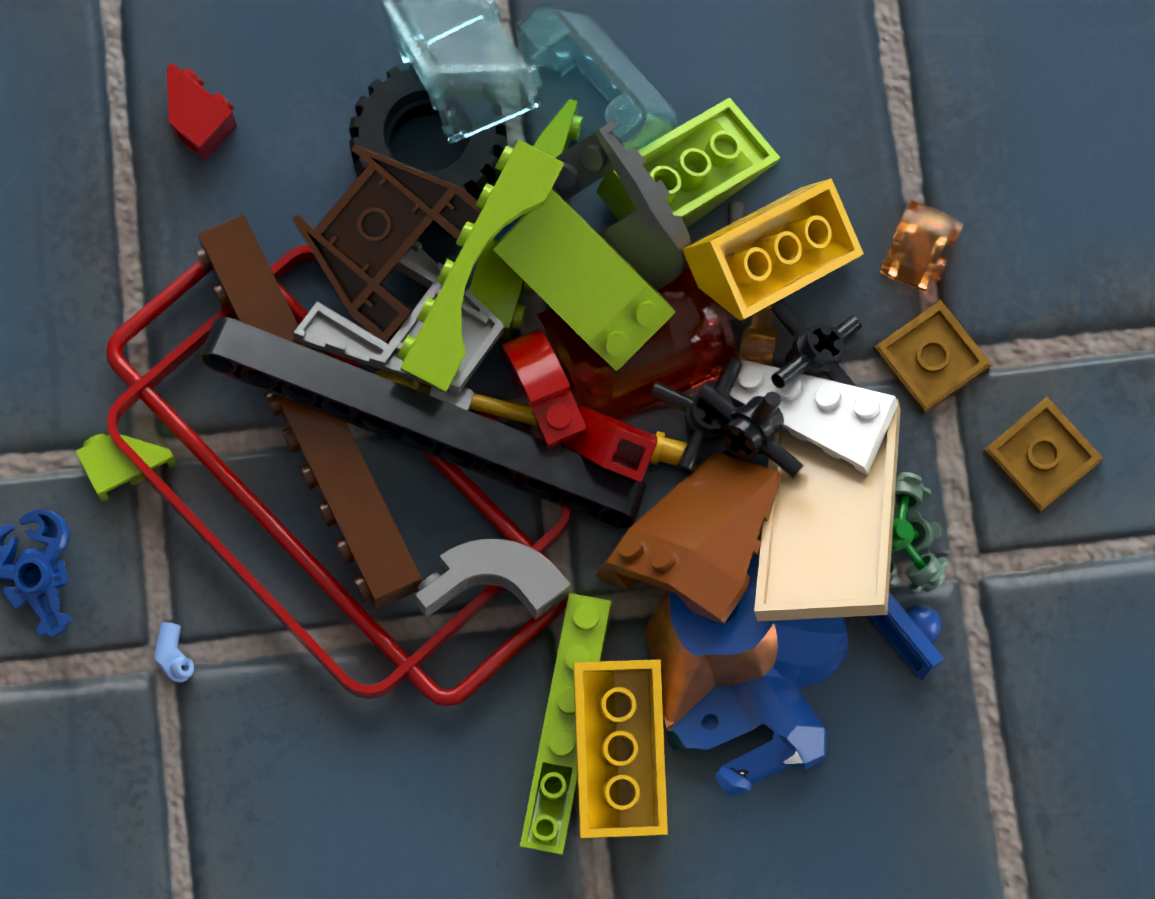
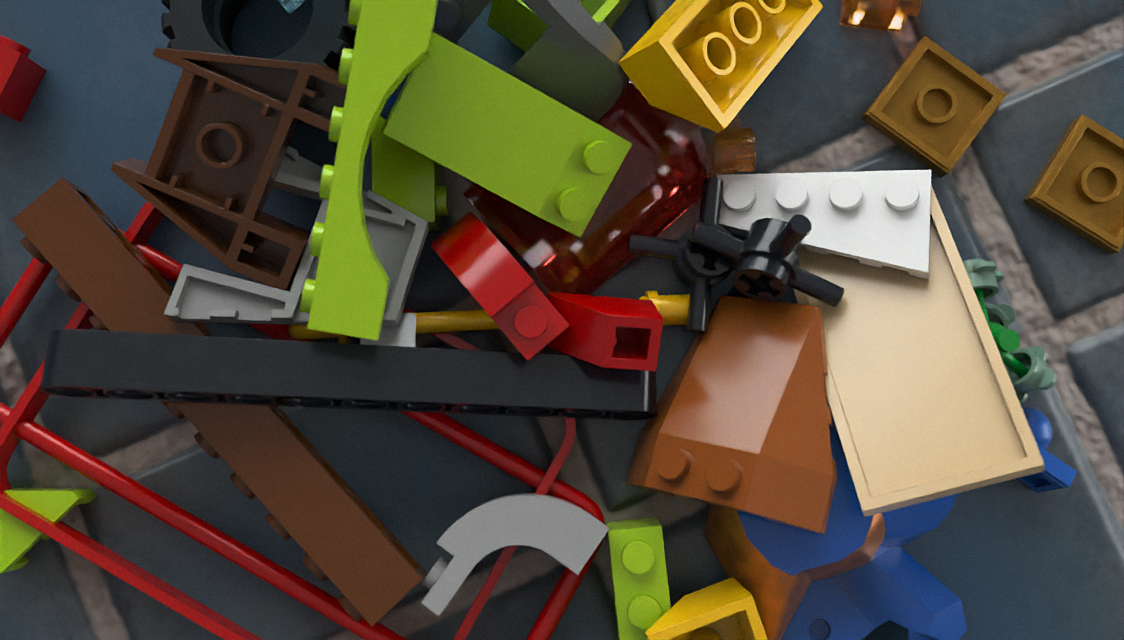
camera: 15 degrees left, 10 degrees up
(815, 349) = (804, 139): black bar -> none

